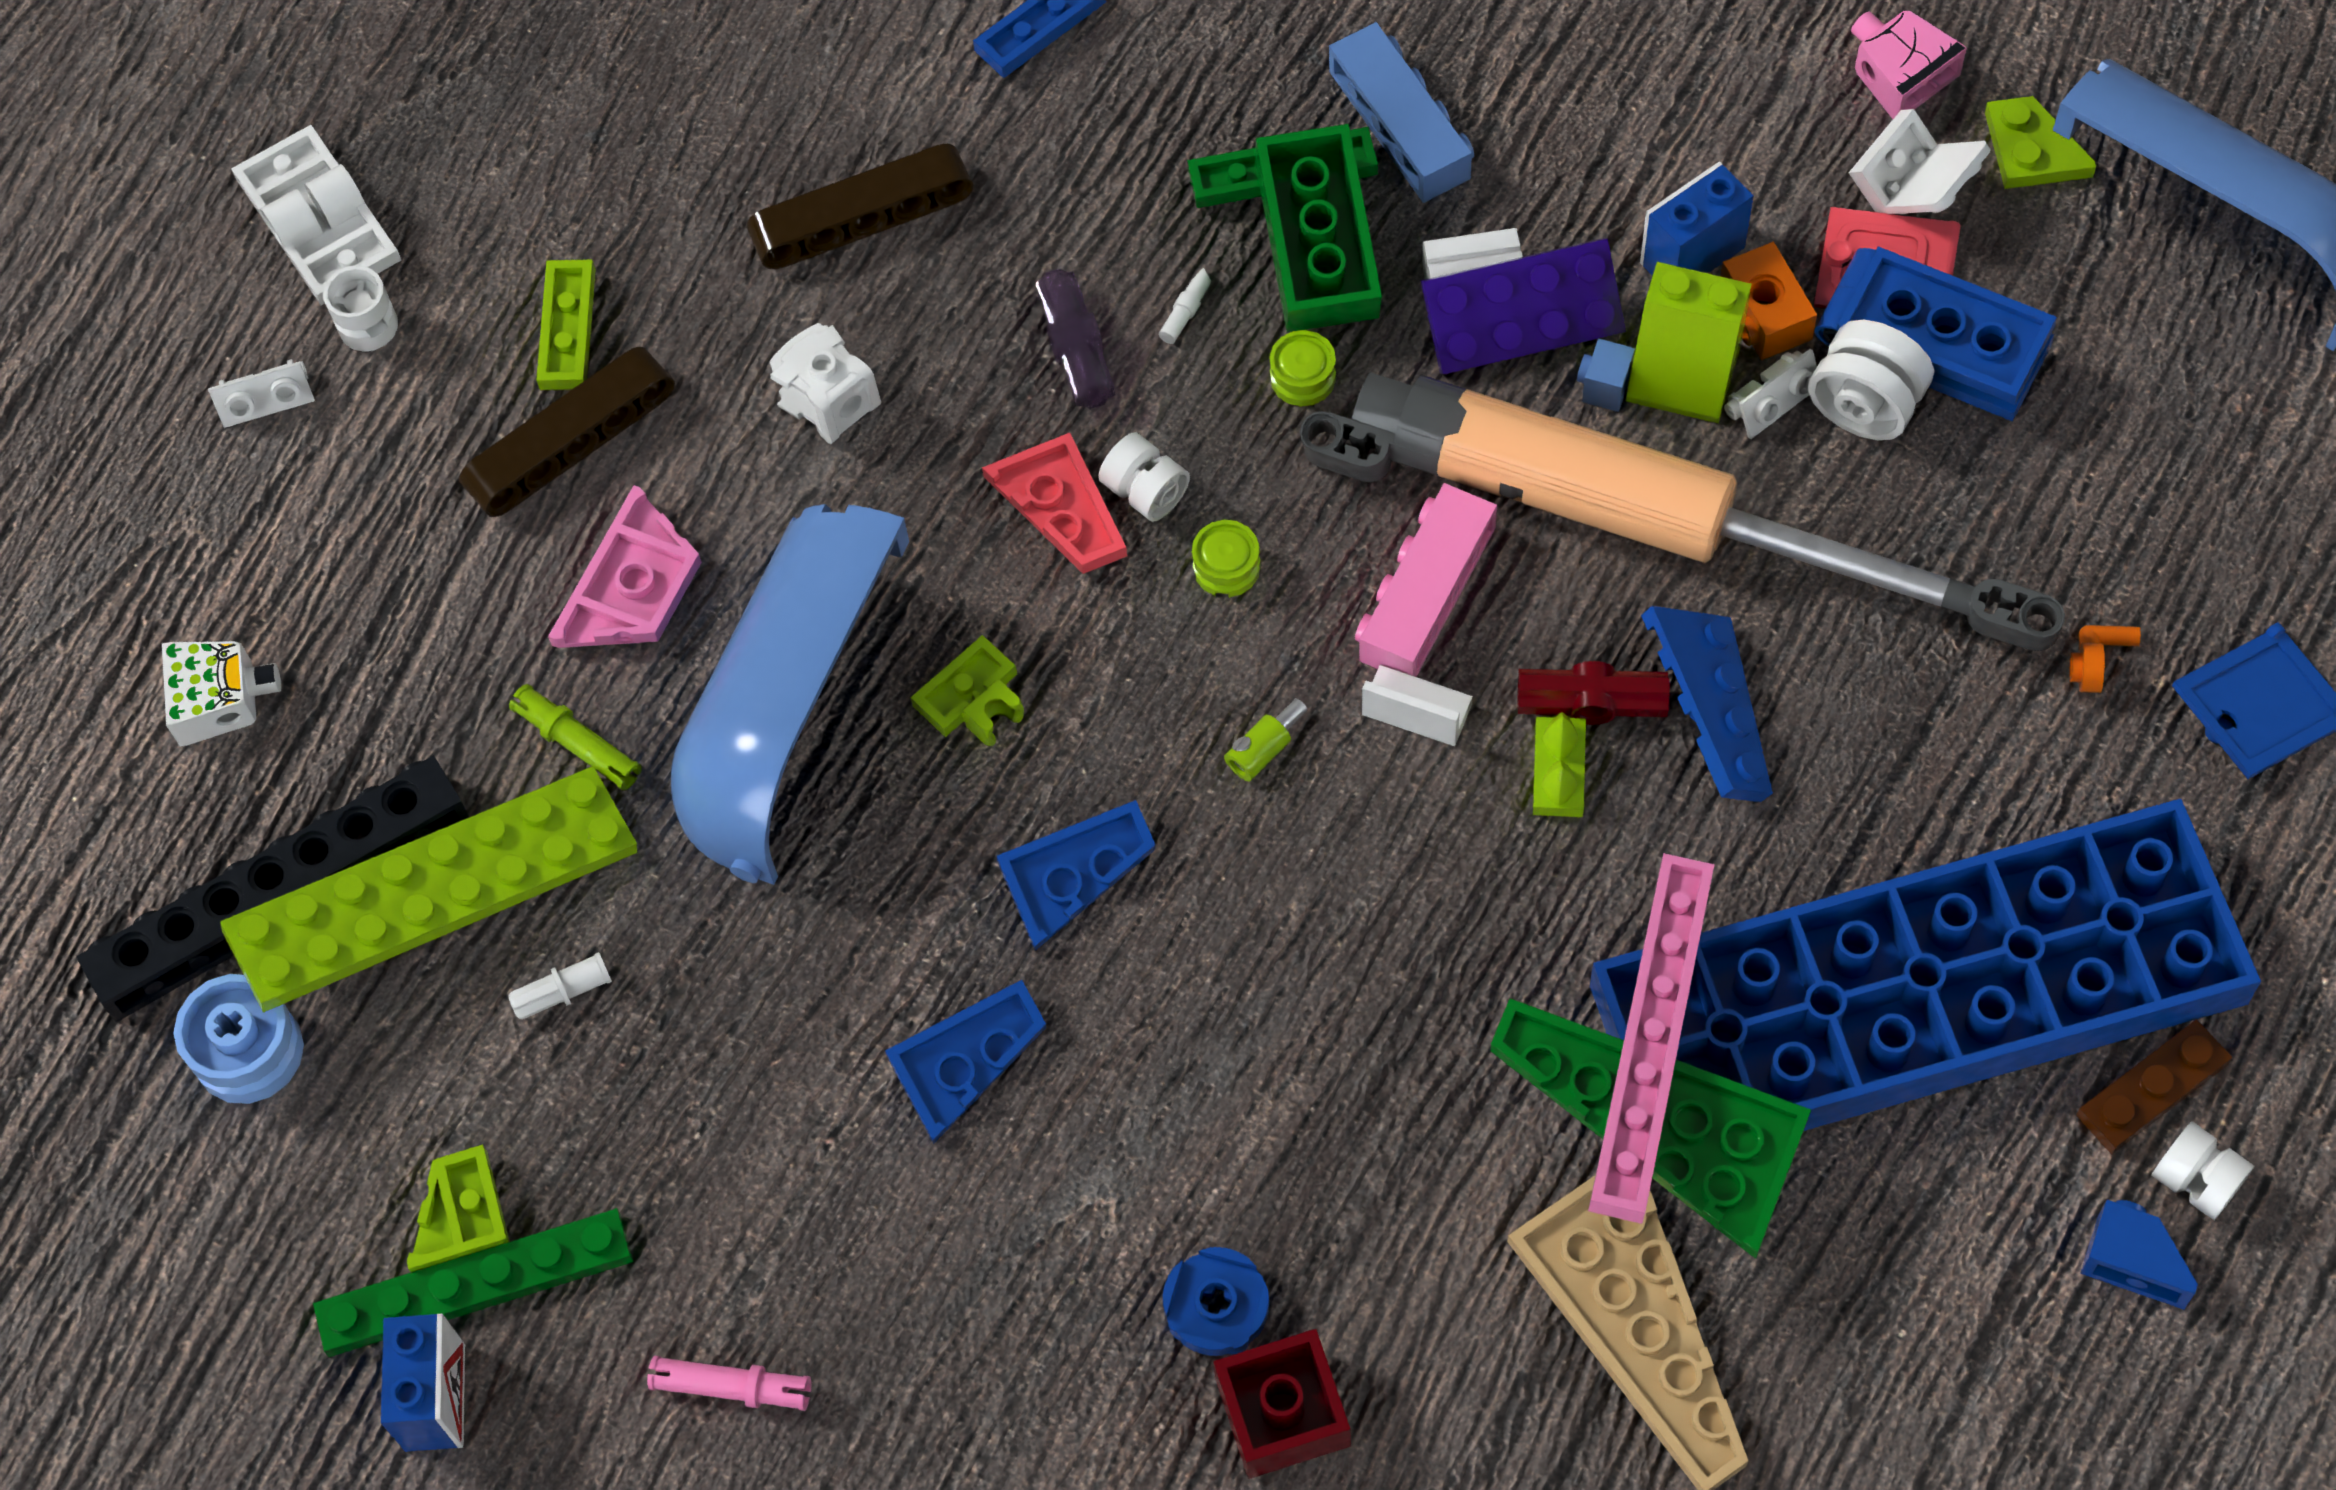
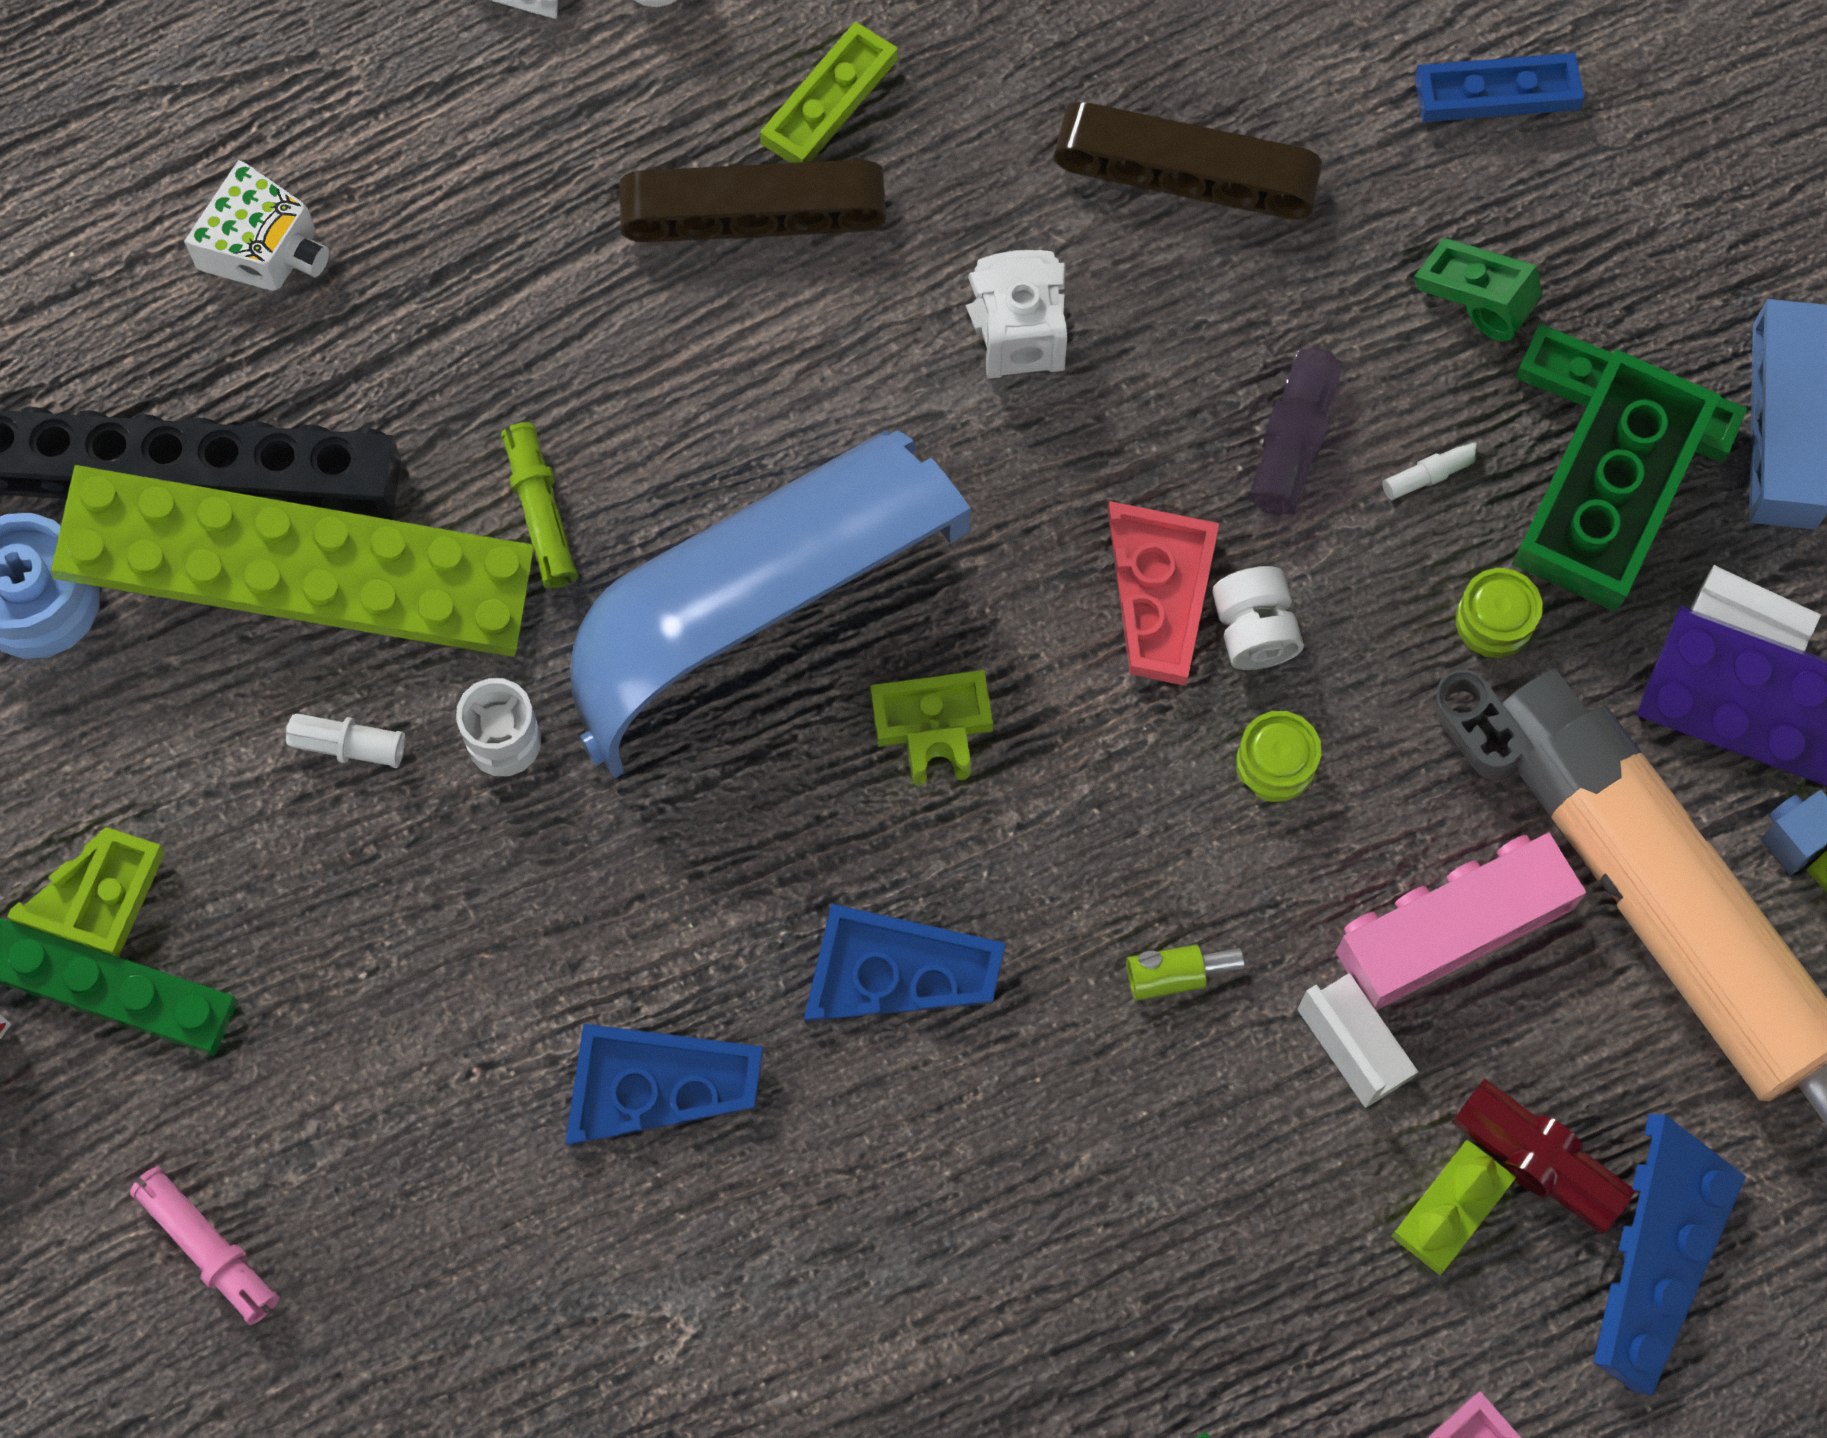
camera: 30 degrees right, 5 degrees up
(630, 581) = (700, 387): bright pink wing -> none
(668, 899) = (498, 727): none -> white wheel
(1136, 155) = (1492, 286): none -> green plate

